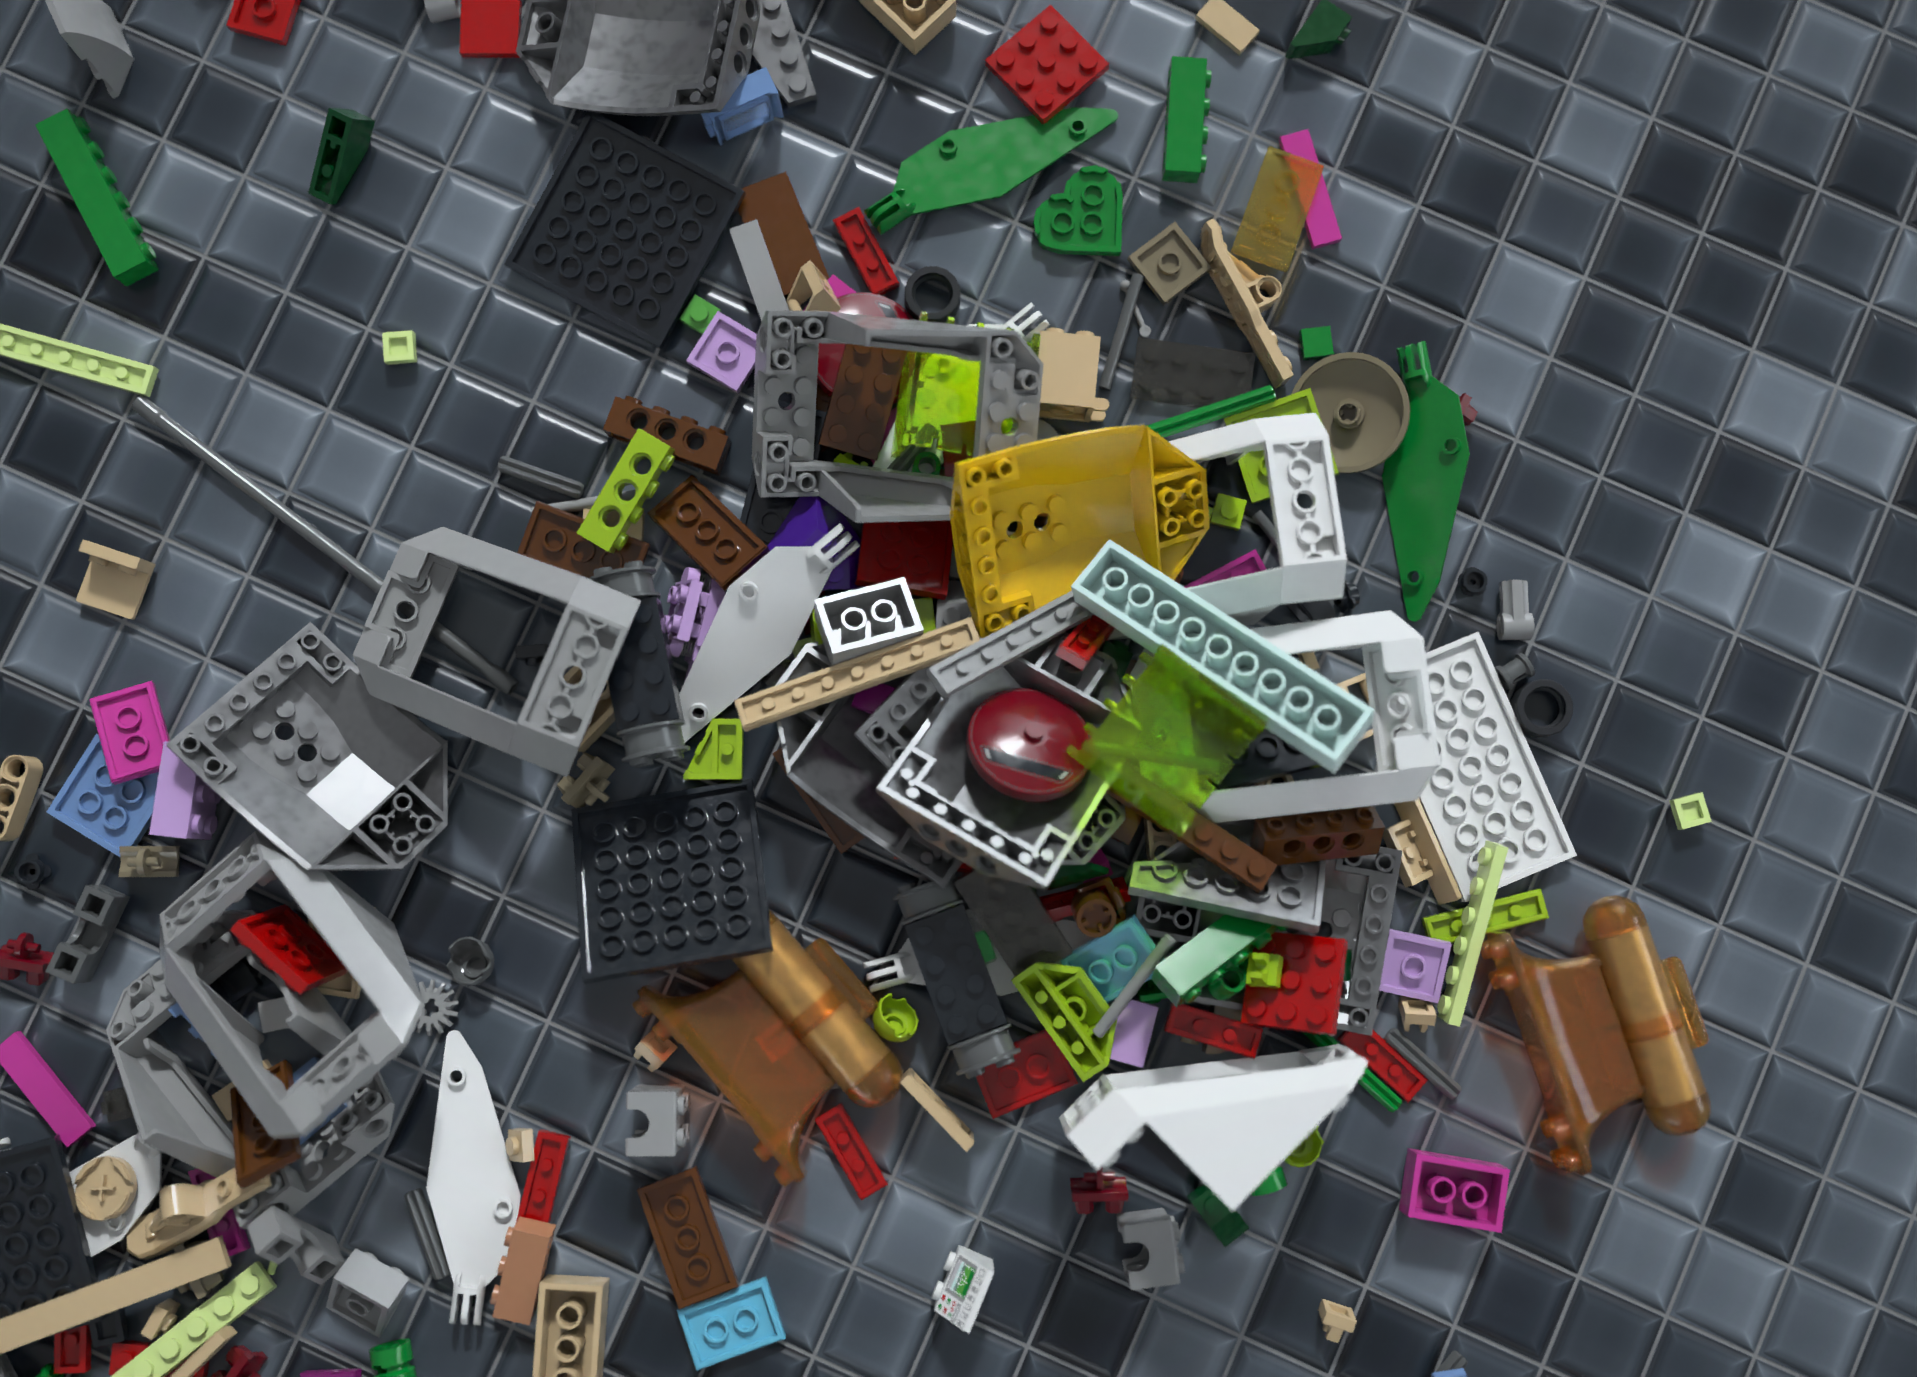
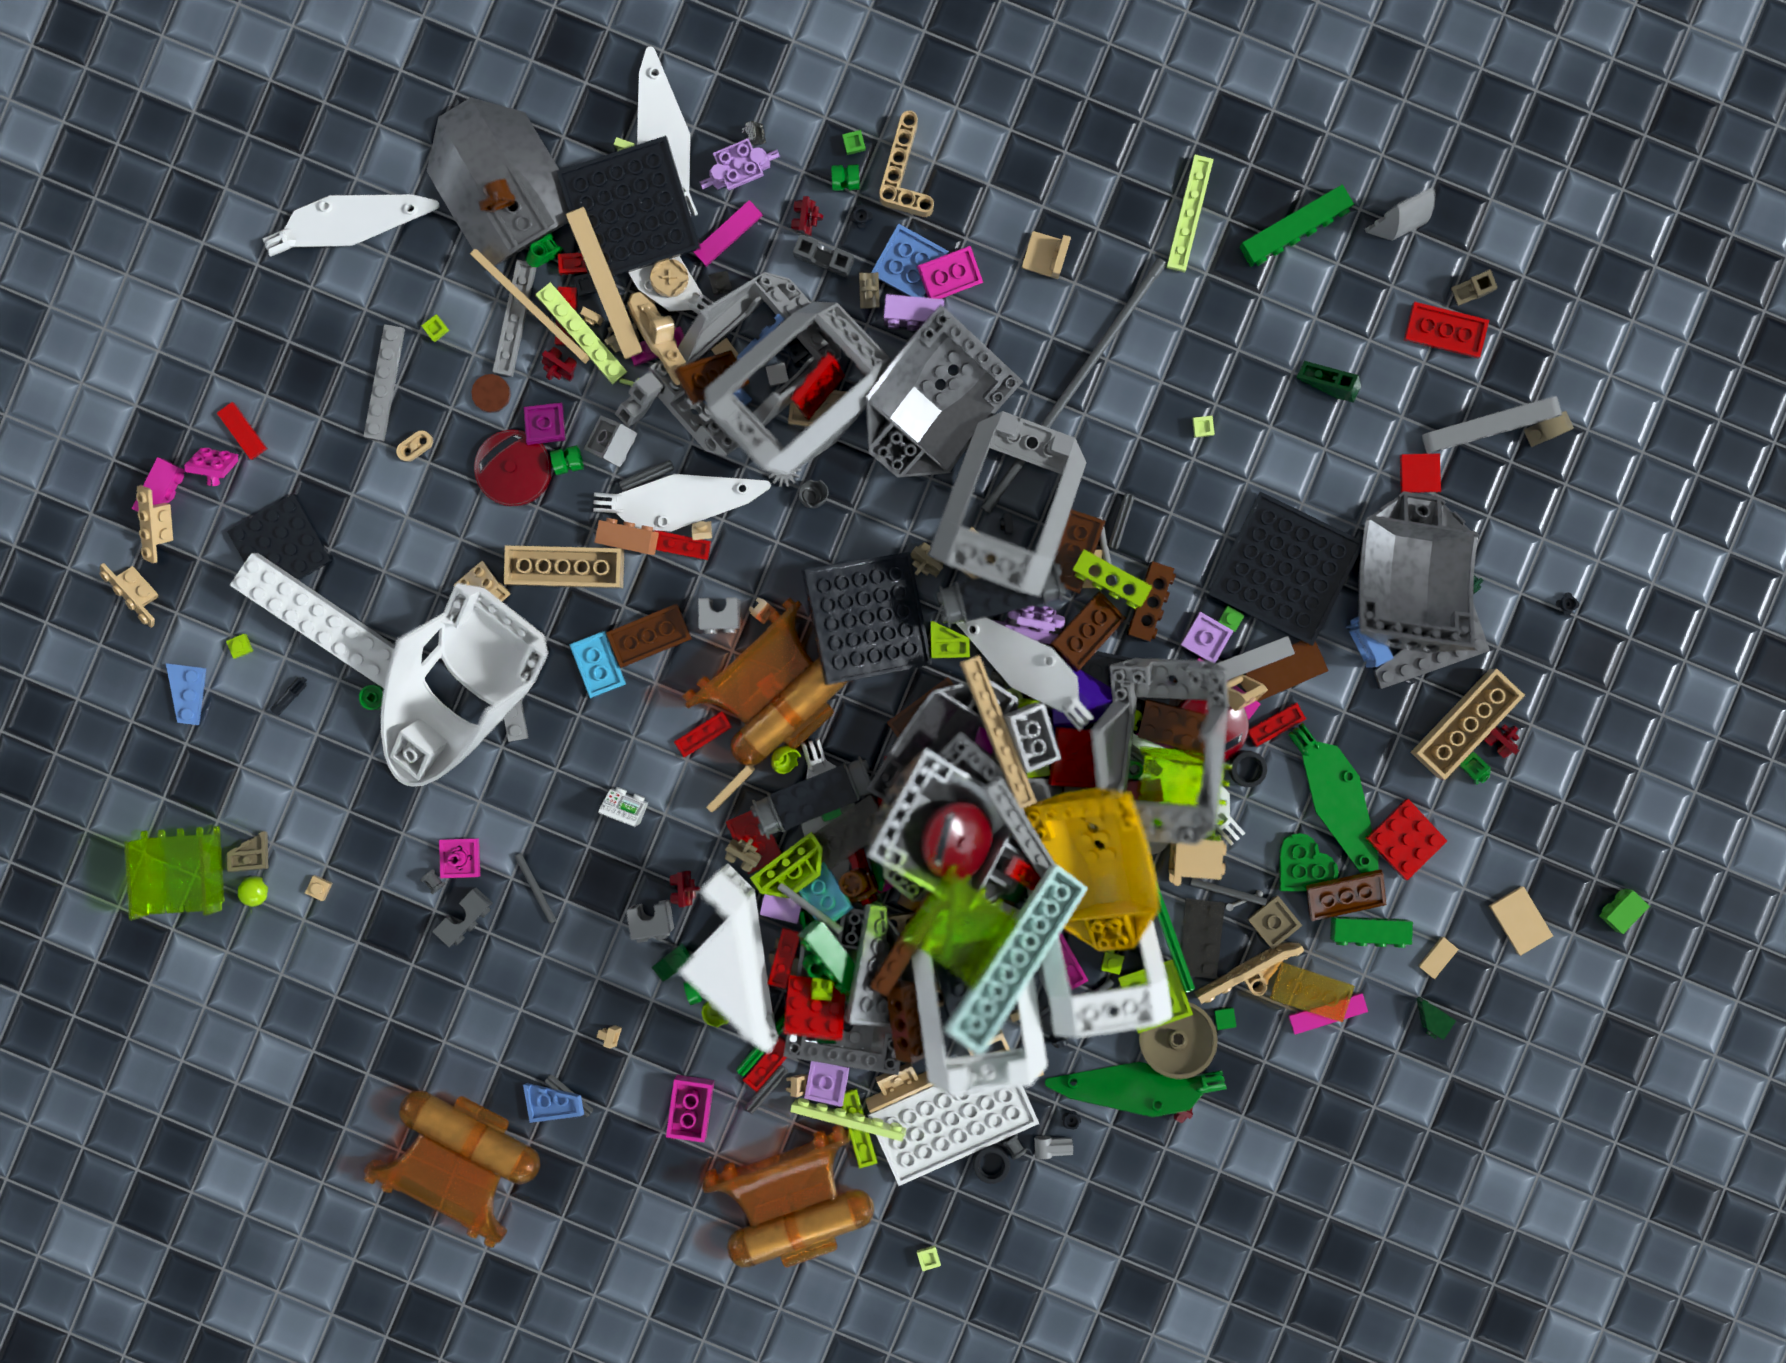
camera: 85 degrees right, 5 degrees up
(1040, 1090) = (743, 851): none -> dark tan hips
(1129, 155) = (1346, 895): none -> reddish brown tile

